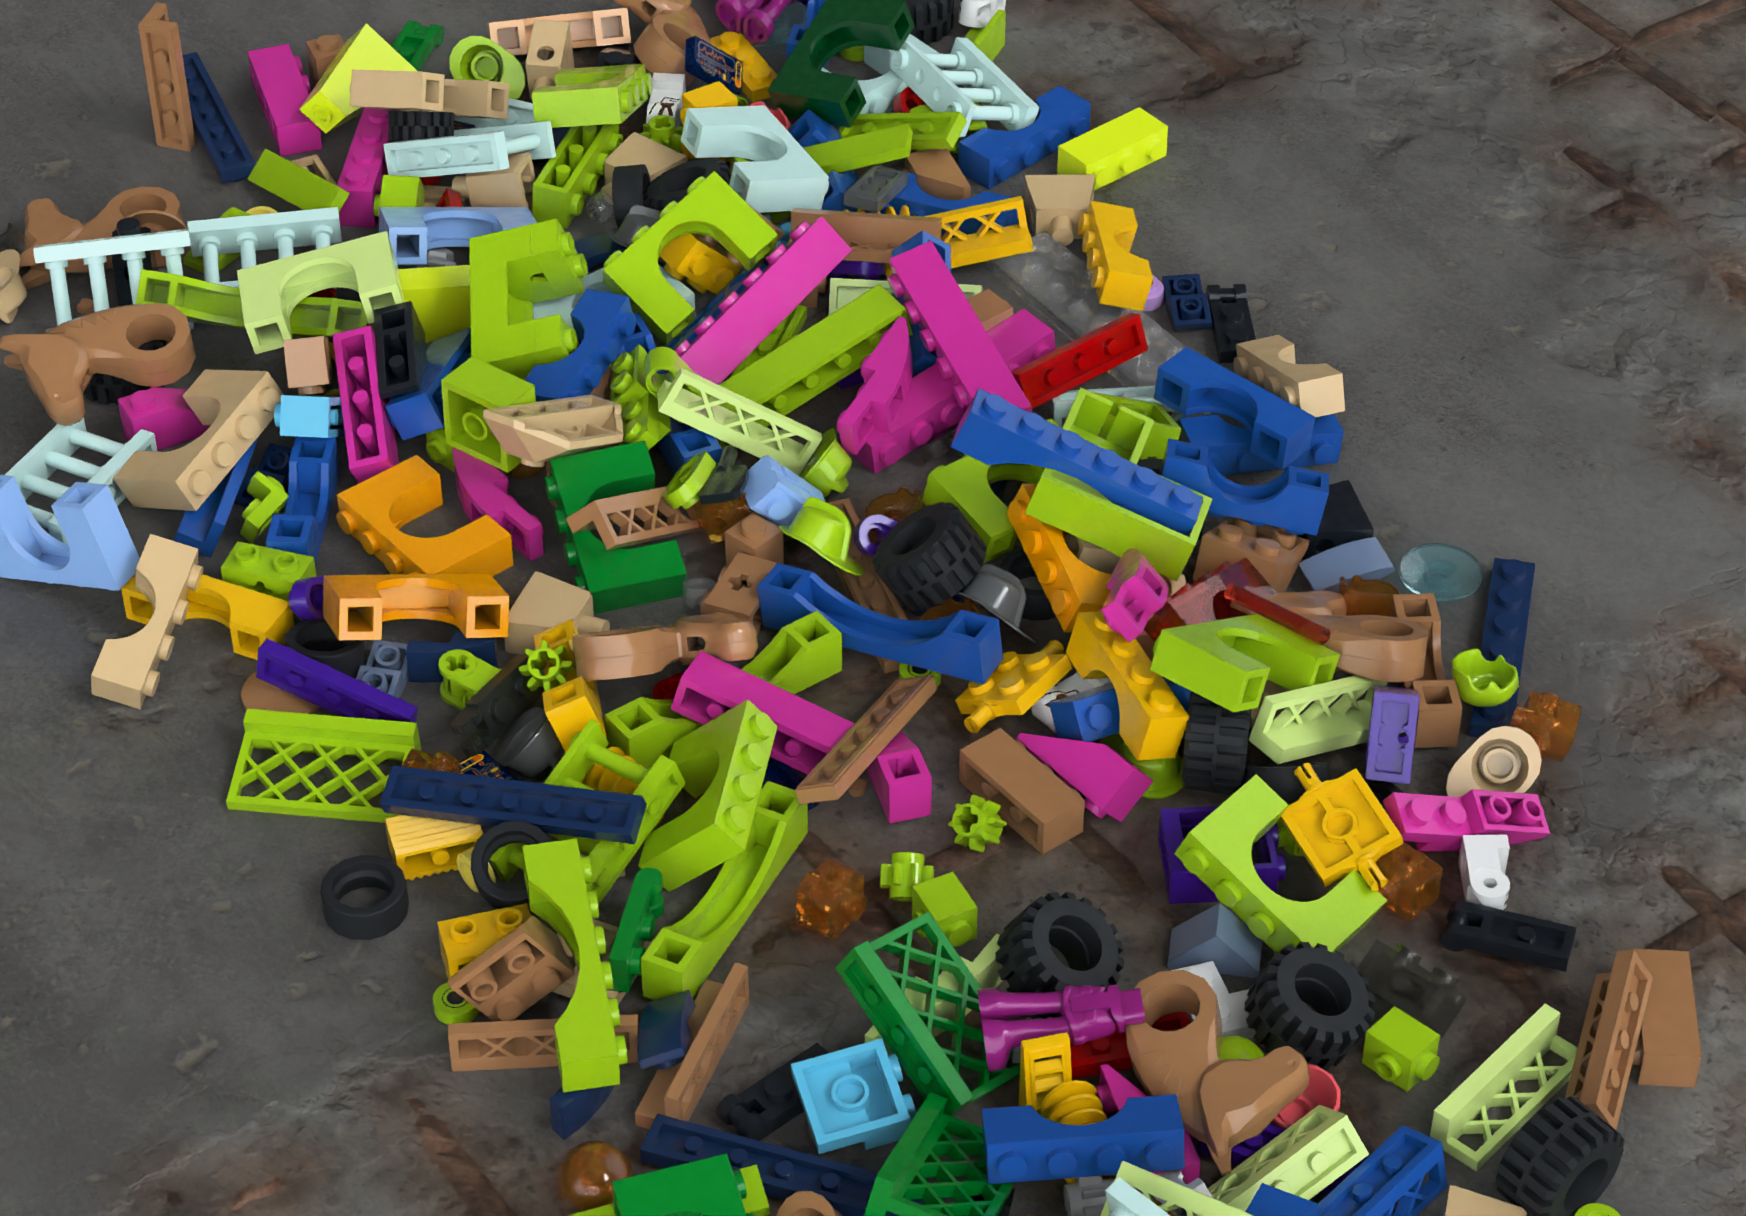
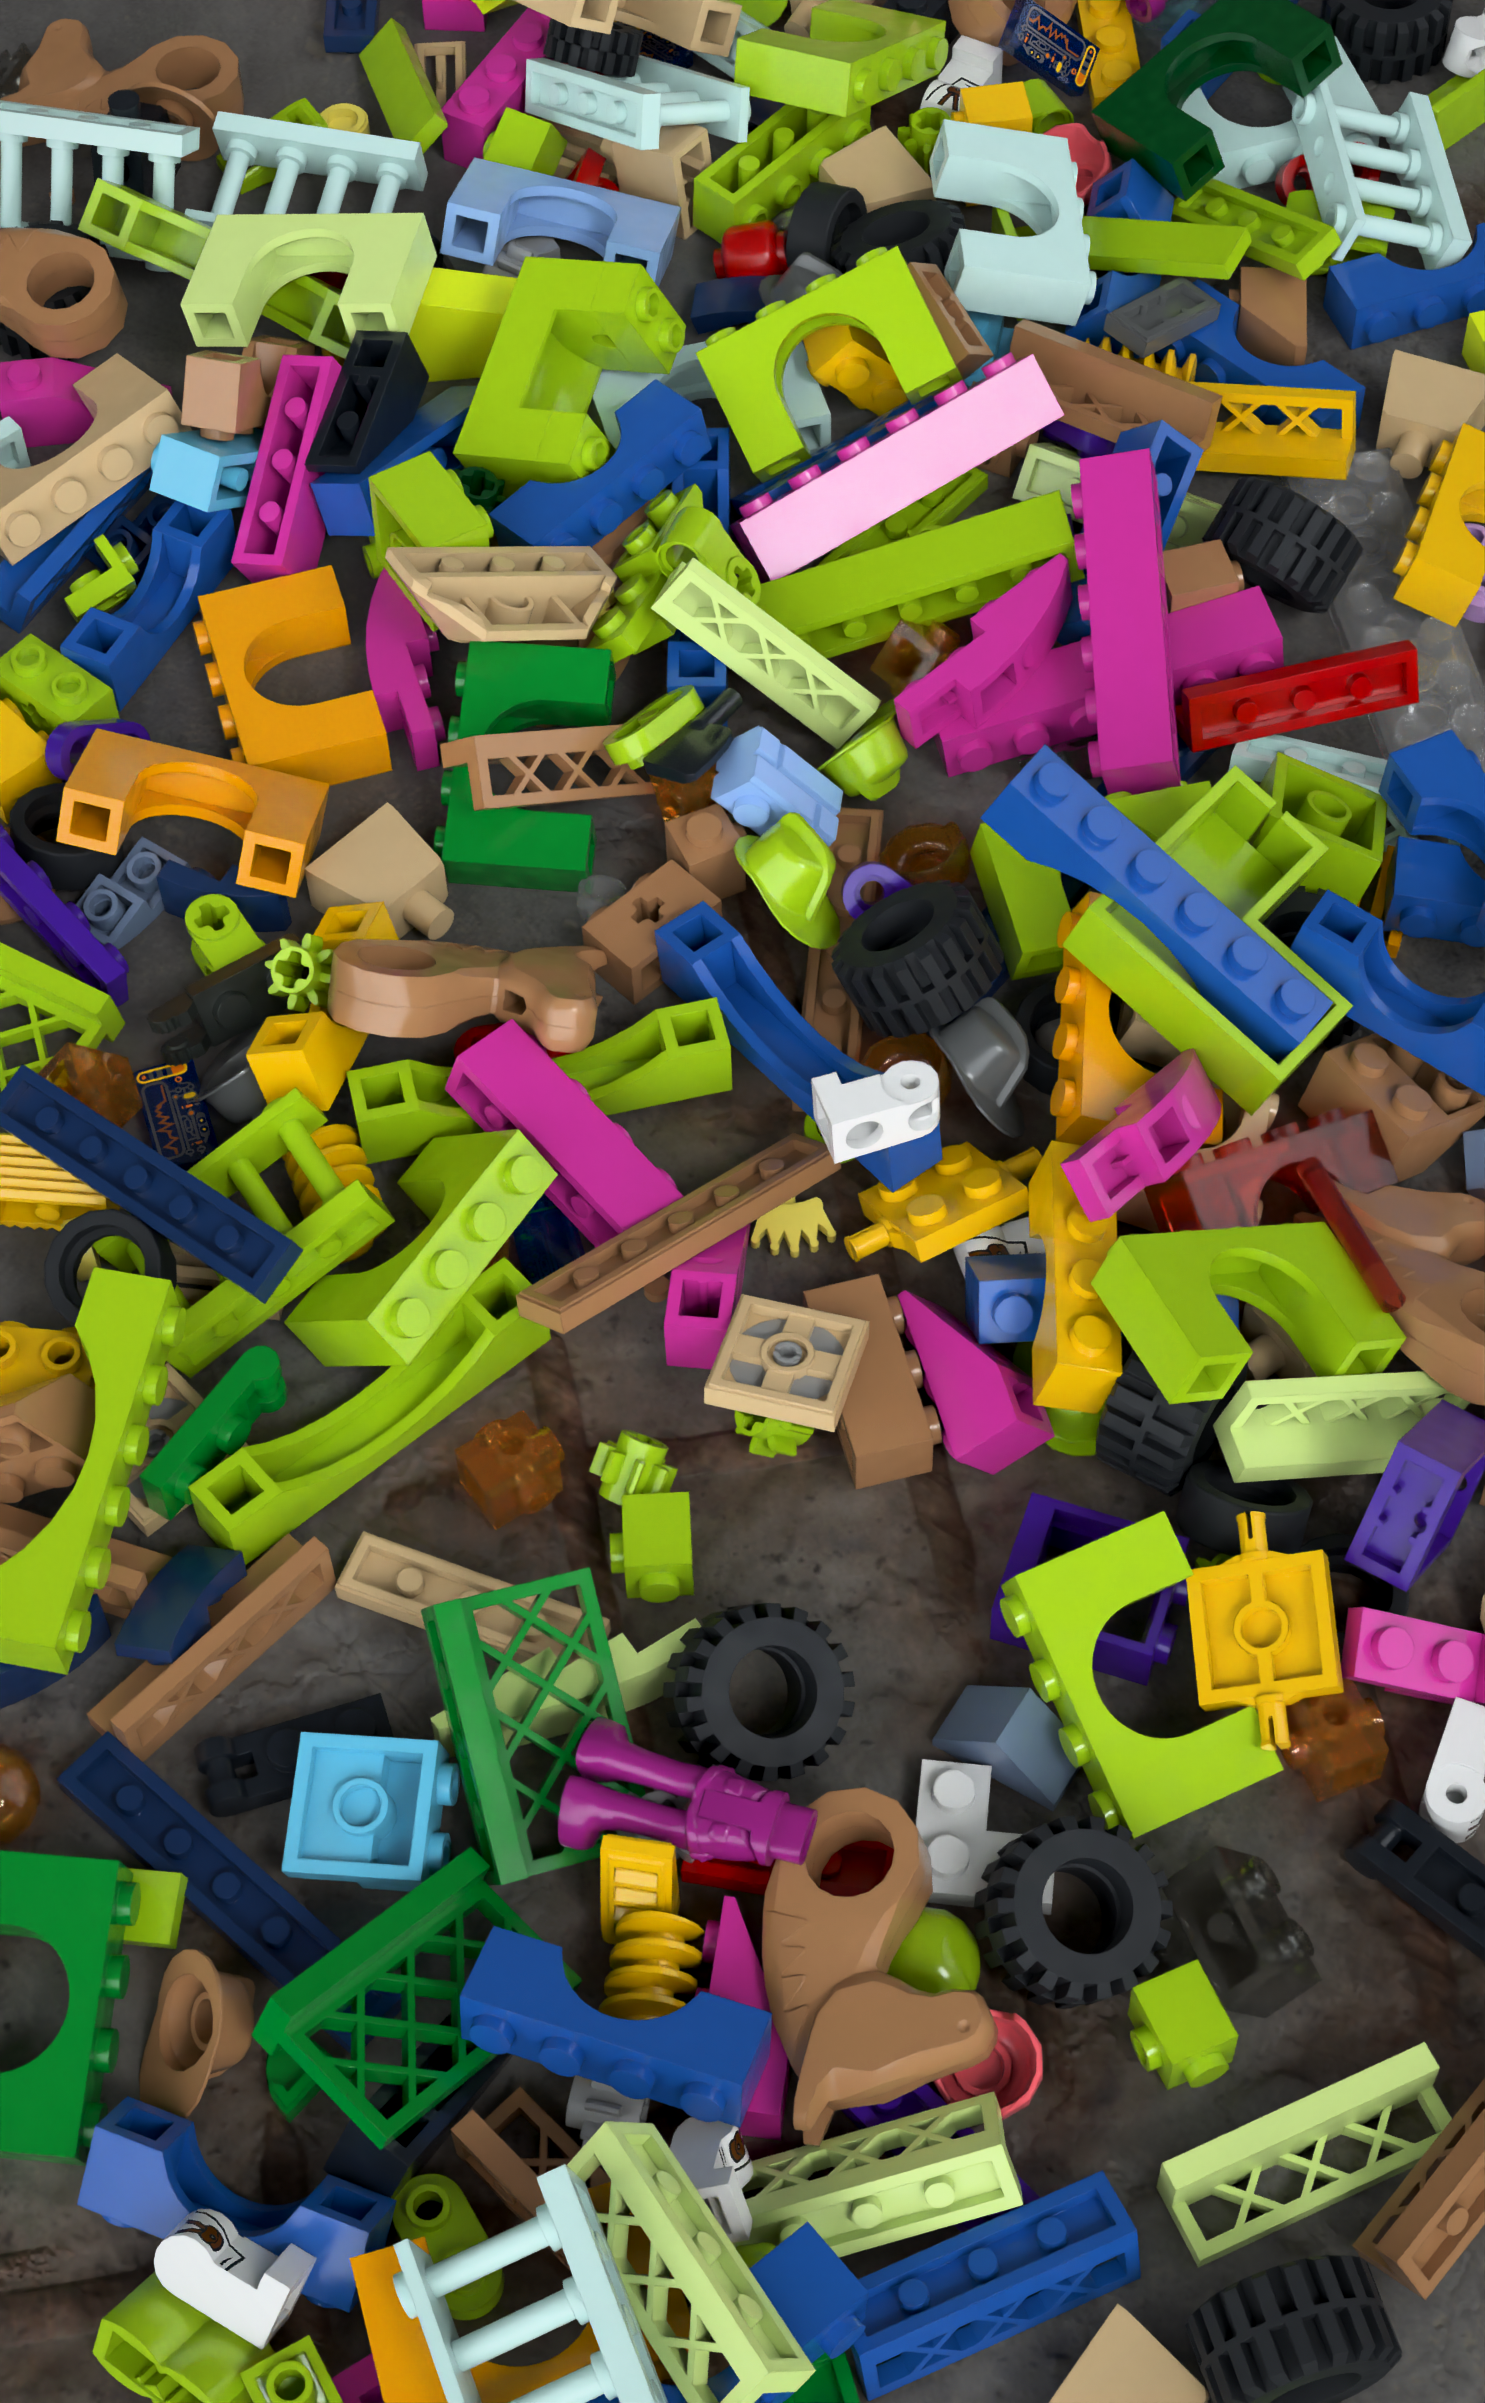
camera: 25 degrees right, 15 degrees up
(587, 219) = (751, 250): none -> red head
(810, 985) = (404, 1581): none -> tan tile
(825, 405) = (914, 652): none -> clear orange brick
(925, 727) = (791, 1222): none -> light yellow piece
(963, 625) = (876, 1109): none -> white leg
(978, 781) = (787, 1362): none -> tan piece
(1026, 281) = (1285, 544): none -> black tyre

